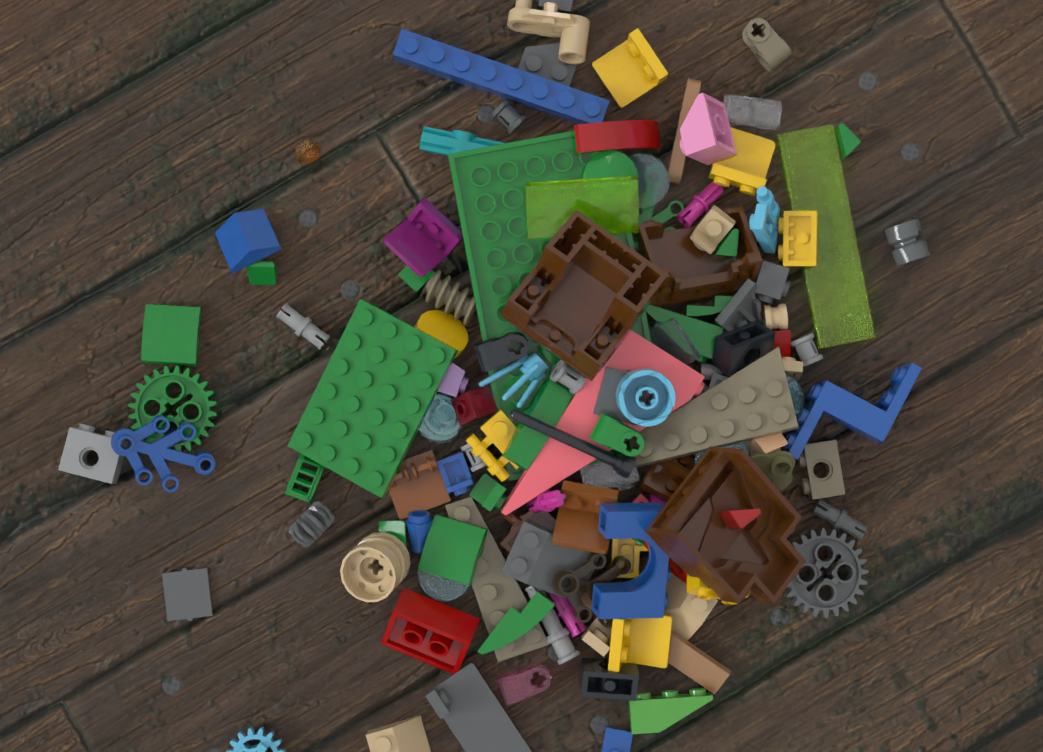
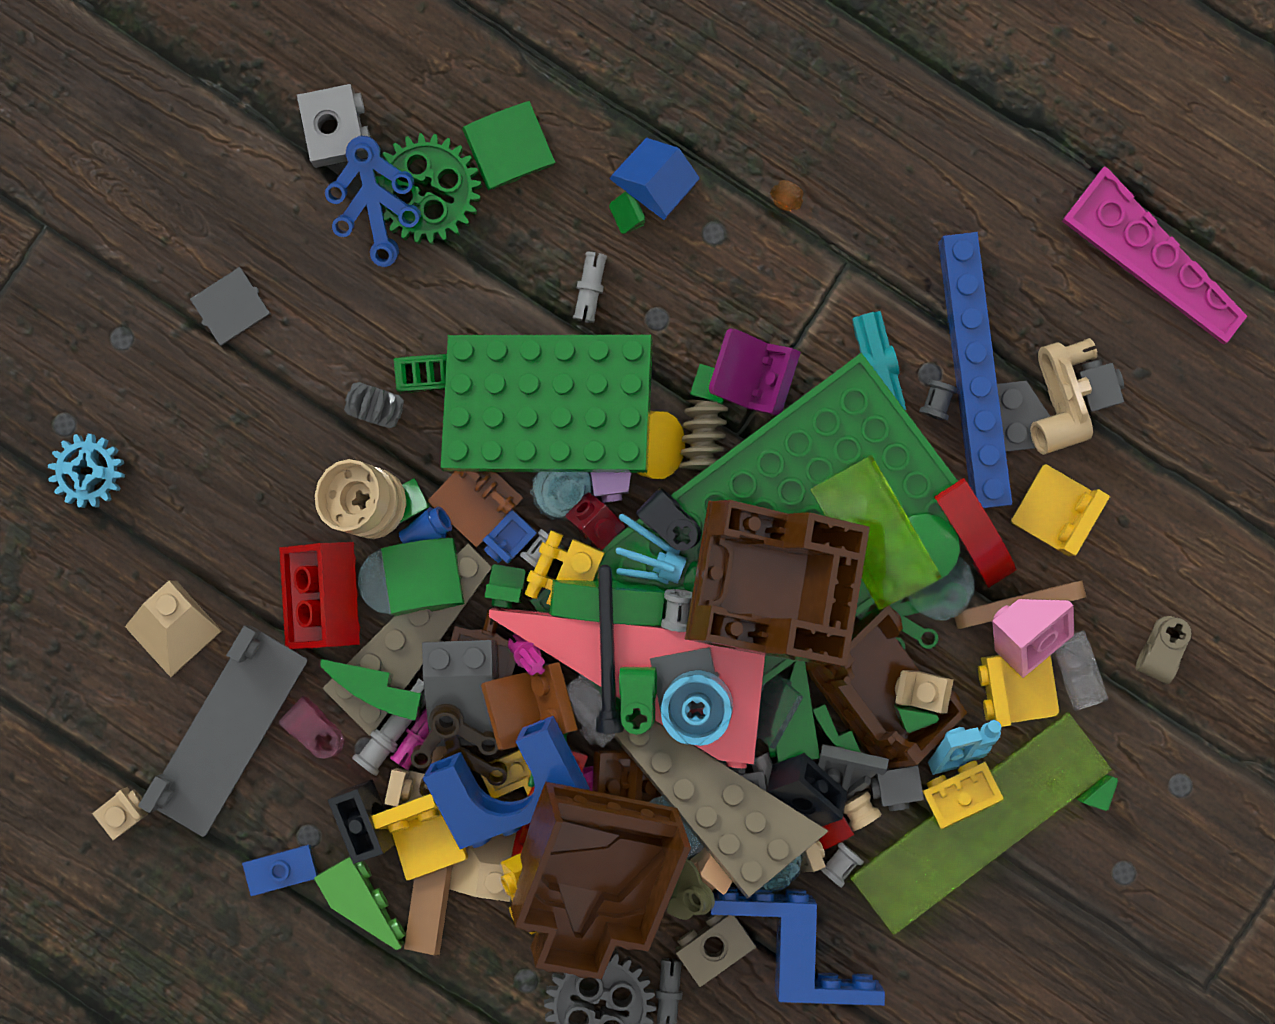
camera: 65 degrees right, 0 degrees up
(700, 204) = (946, 663): dark pink axle -> none
(739, 518) = (611, 880): red slope -> none
(907, 242) = (1019, 919): dark grey wheel -> none

